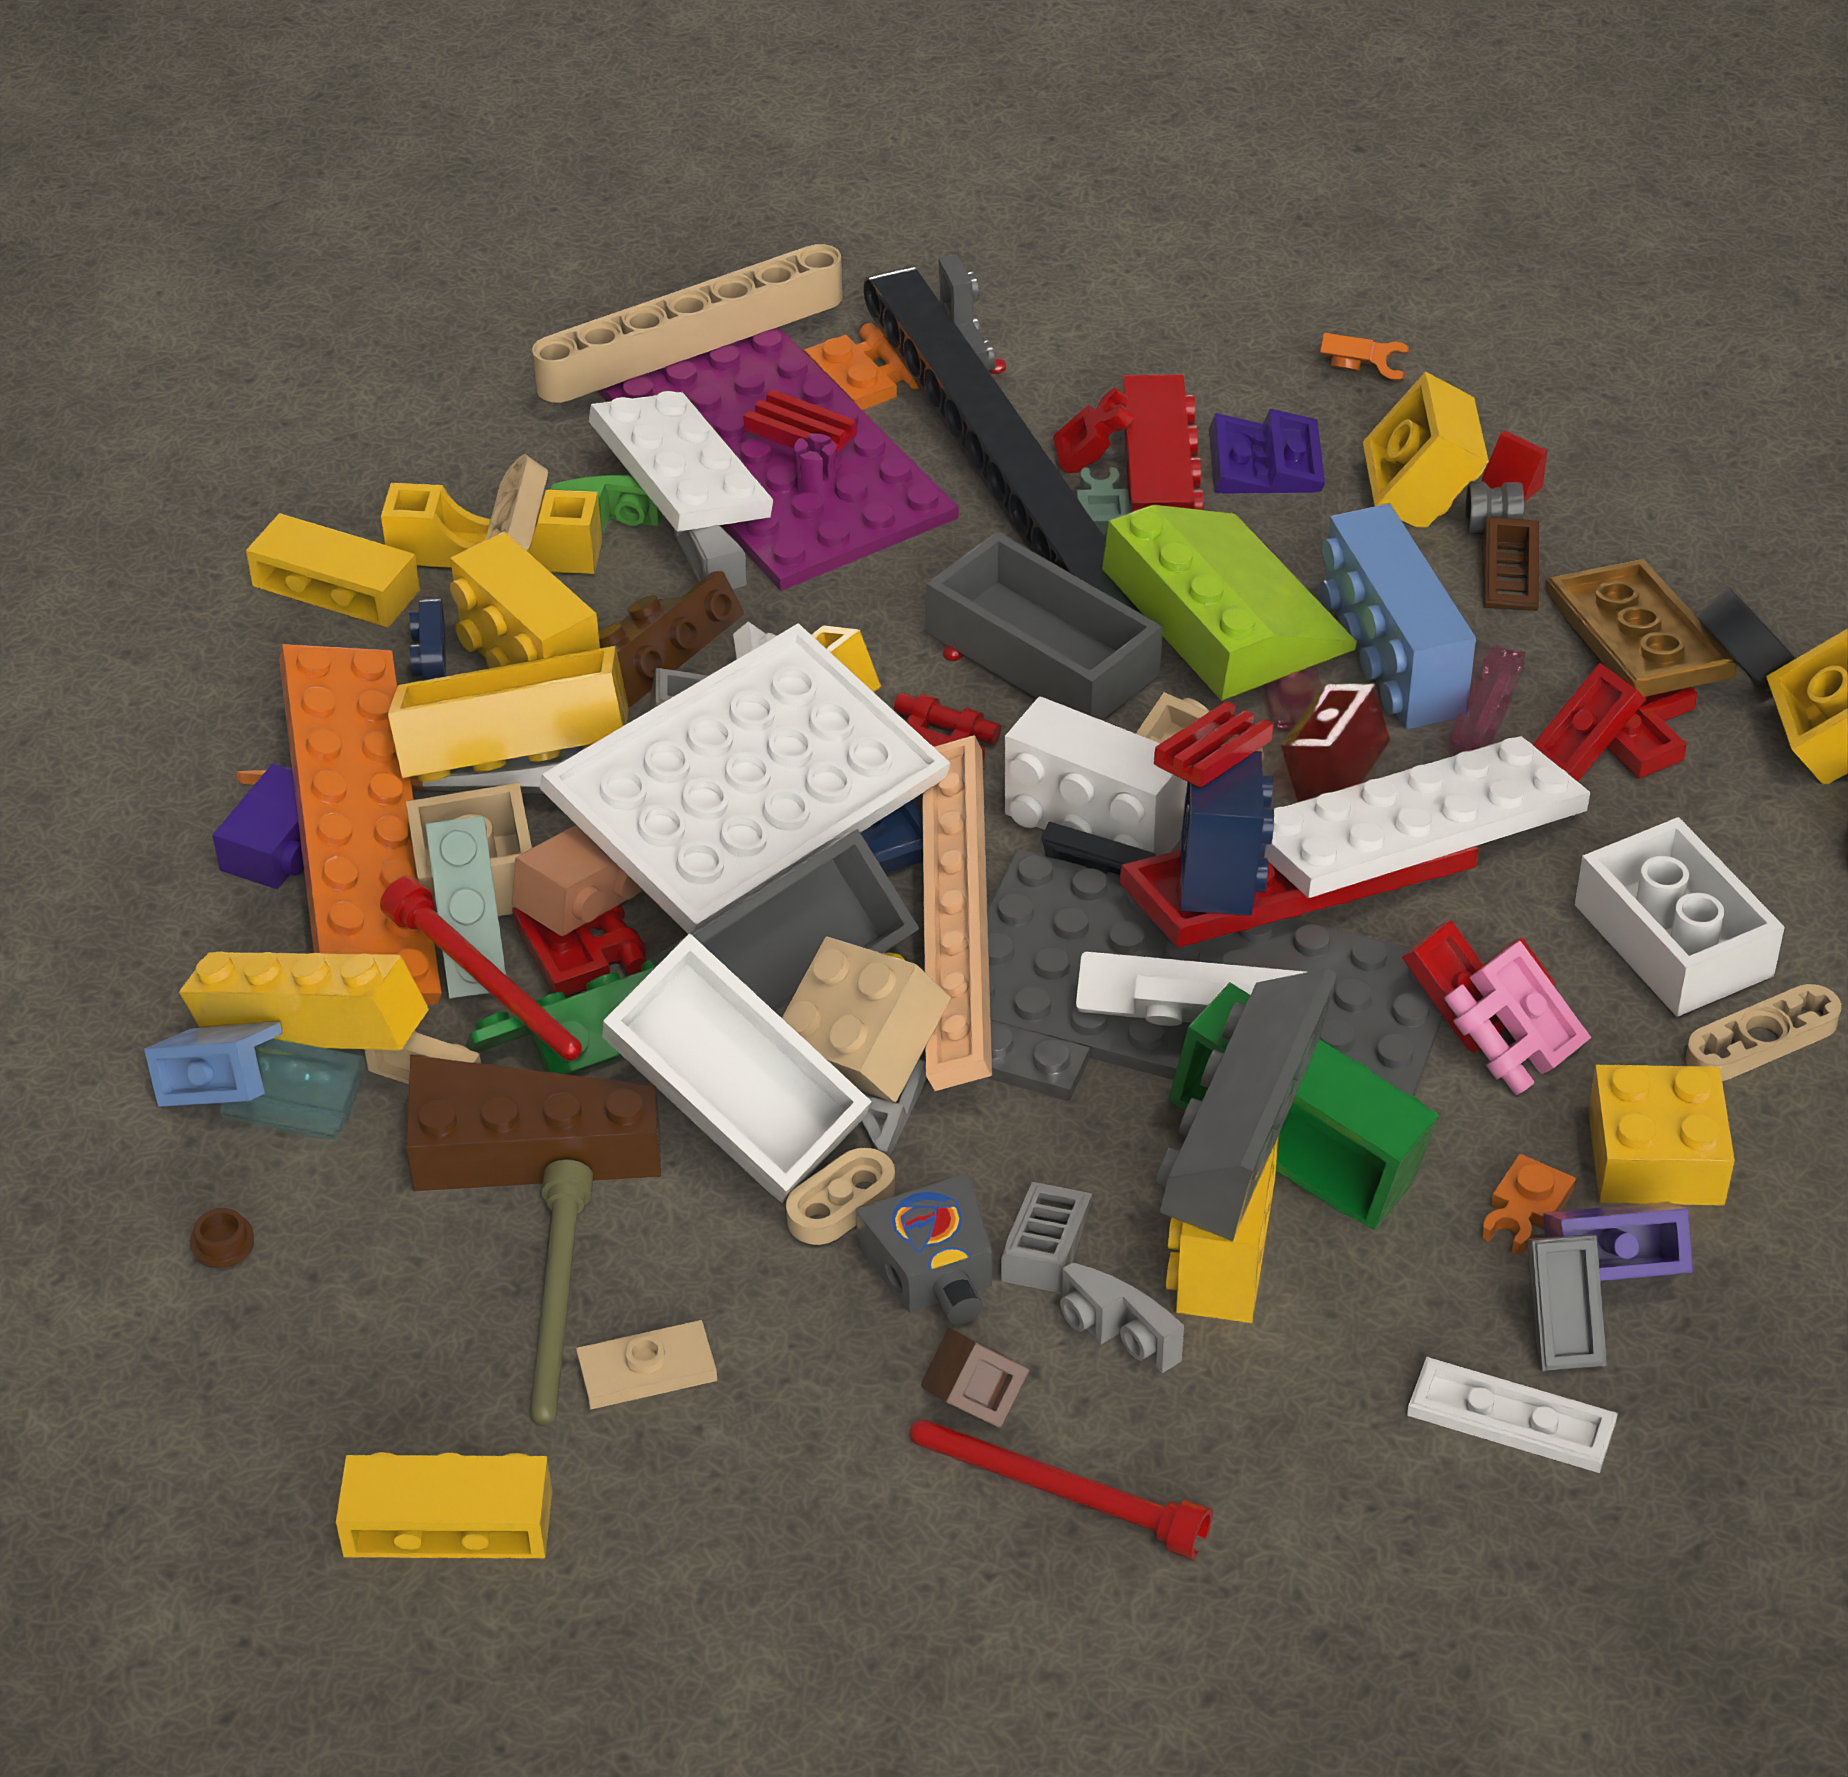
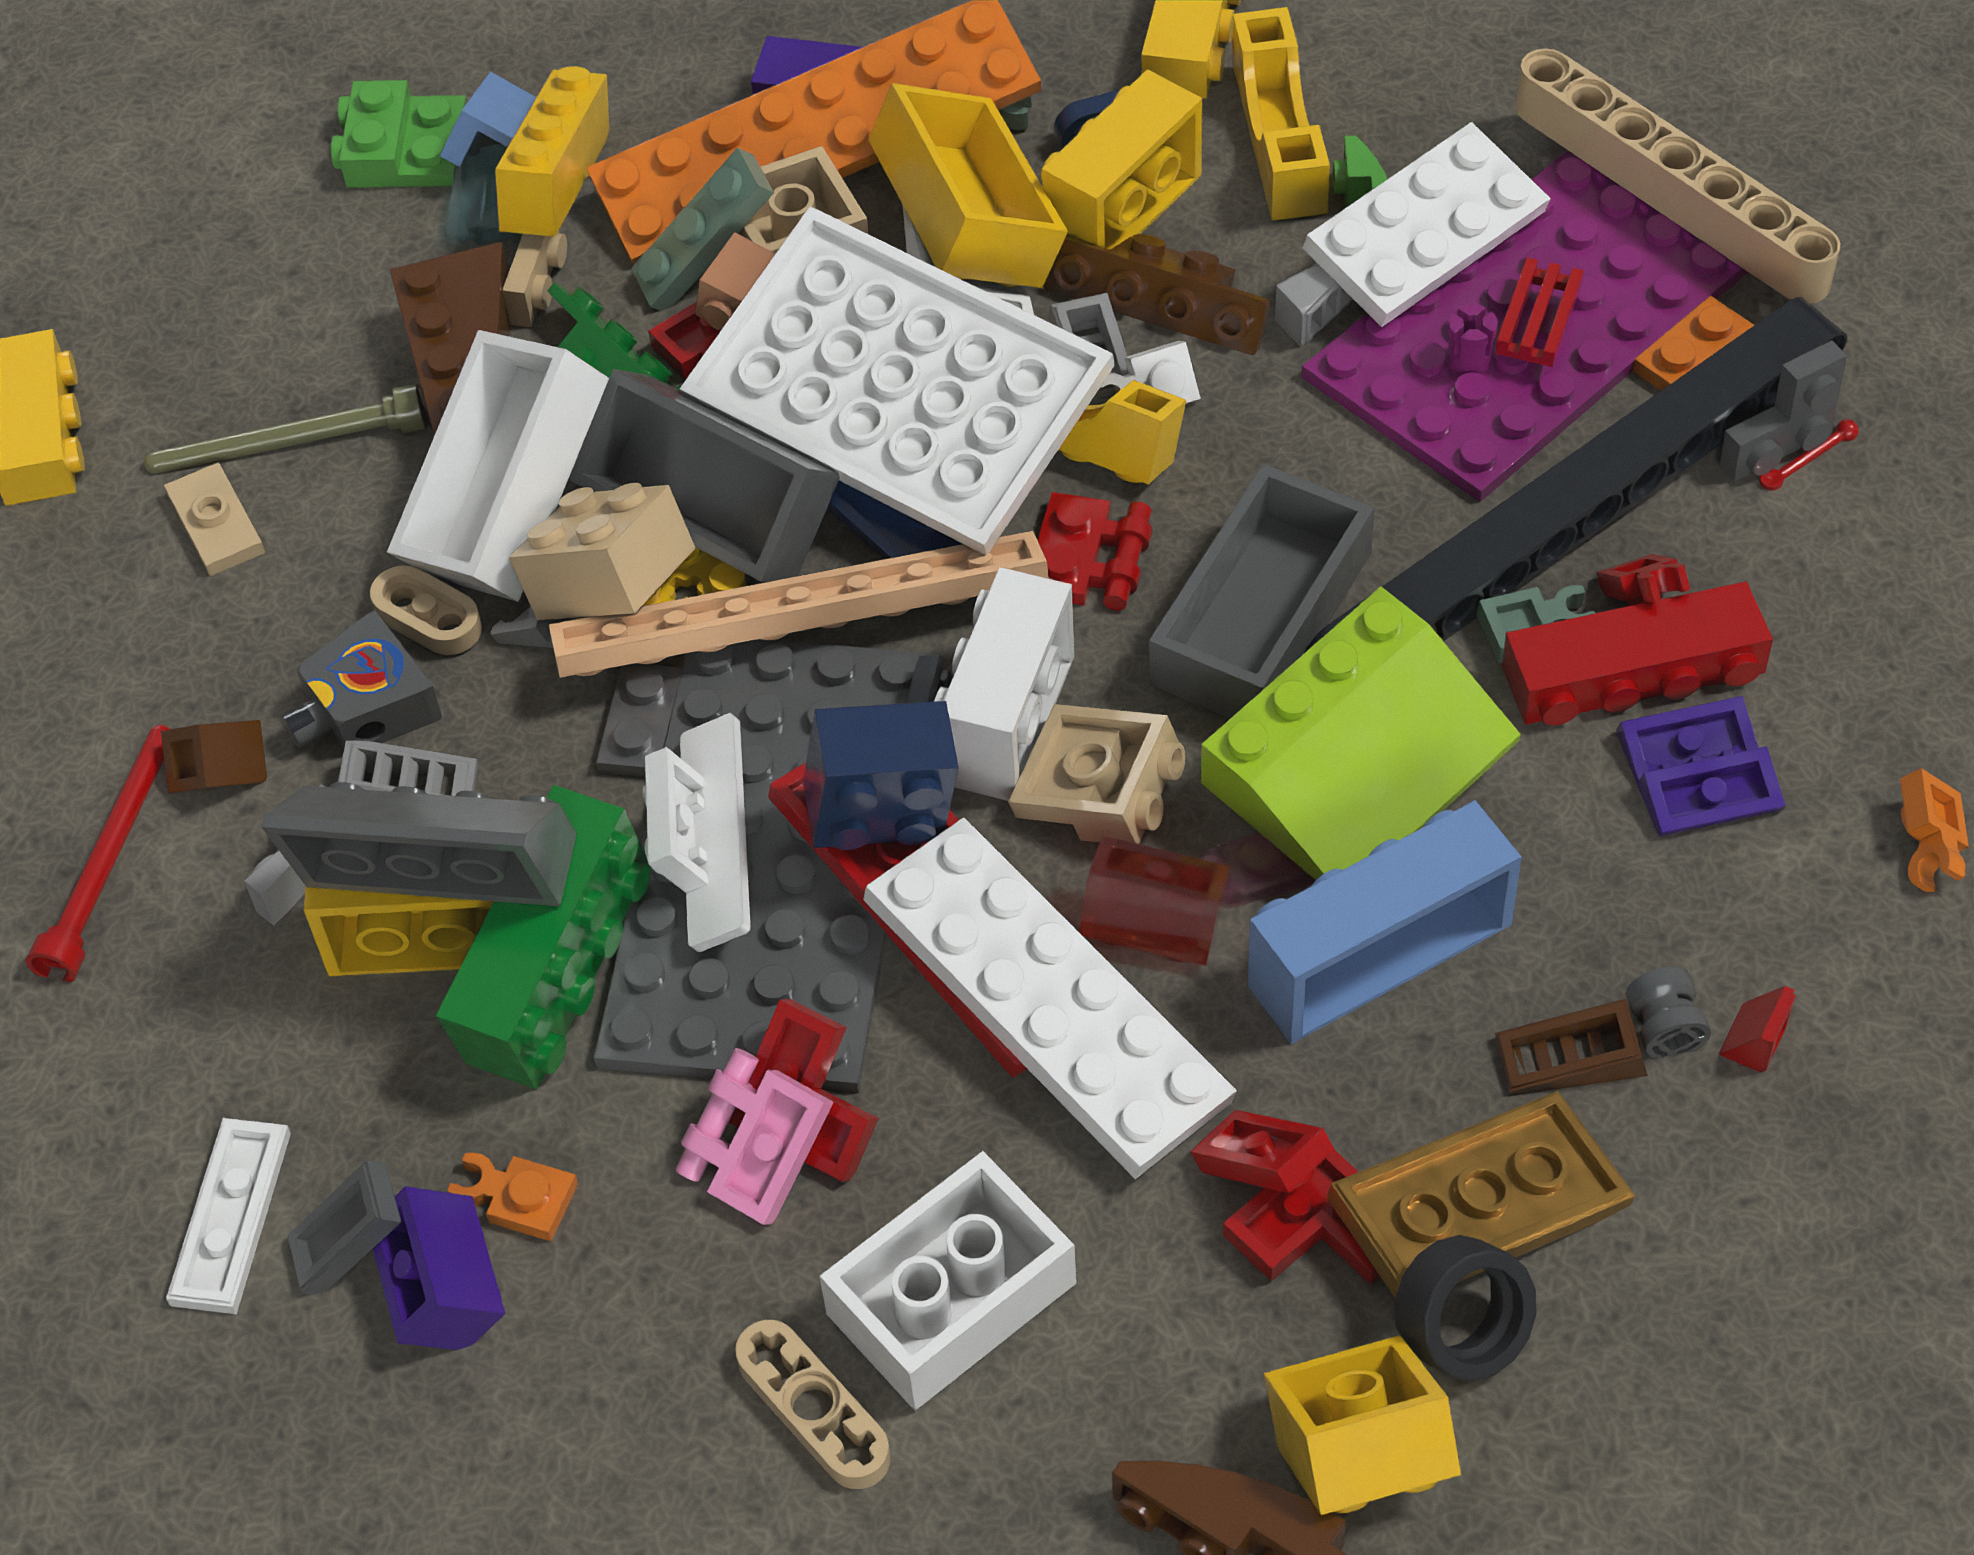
camera: 80 degrees right, 10 degrees up
(167, 1159) = (394, 136): none -> bright green plate
(221, 1238) = (316, 197): reddish brown plate -> none
(411, 906) = (680, 188): red piece -> none
(519, 501) = (1284, 114): tan beam -> none
(1205, 739) = (942, 706): red tile -> none
(1425, 451) = (1704, 905): yellow brick -> none
(1489, 699) = (1292, 1052): clear pink hinge -> none
(1660, 1134) = (607, 1299): yellow brick -> none

